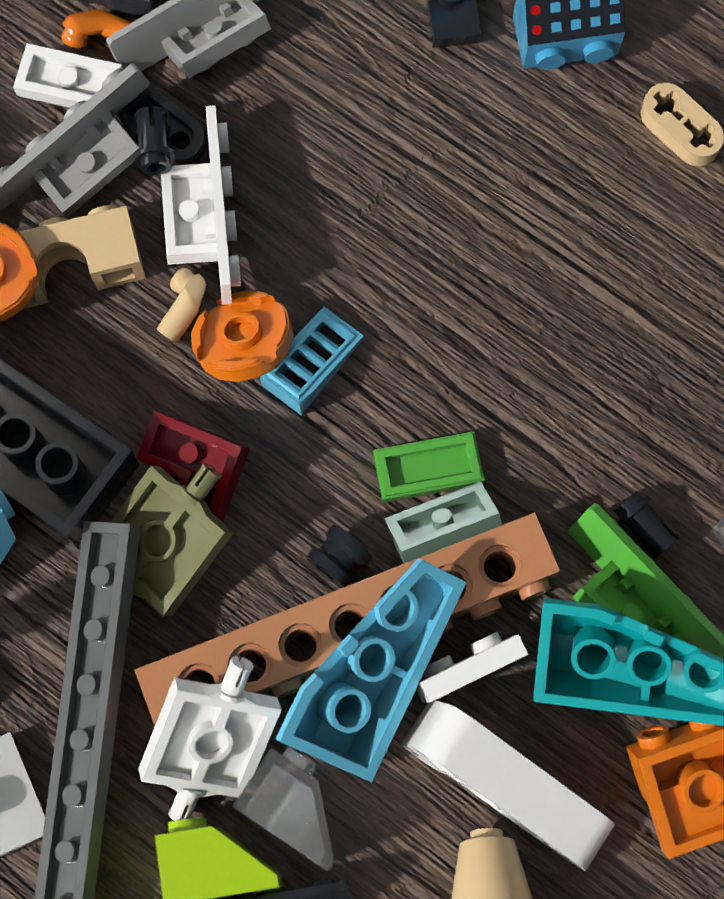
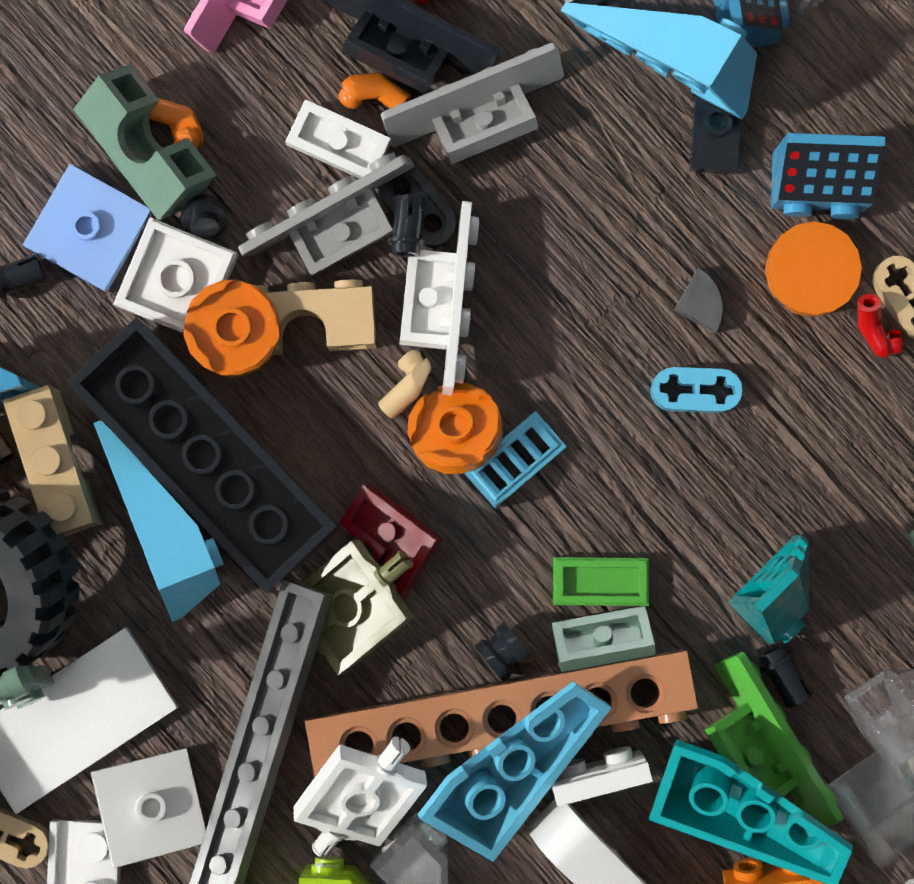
camera: 15 degrees right, 10 degrees up
(473, 167) = (701, 302): none -> flat silver tile
(484, 243) = (696, 378): none -> medium azure beam
(579, 115) = (813, 269): none -> orange tile
(617, 438) = (777, 593): none -> teal wedge
(651, 158) = (871, 328): none -> red arm

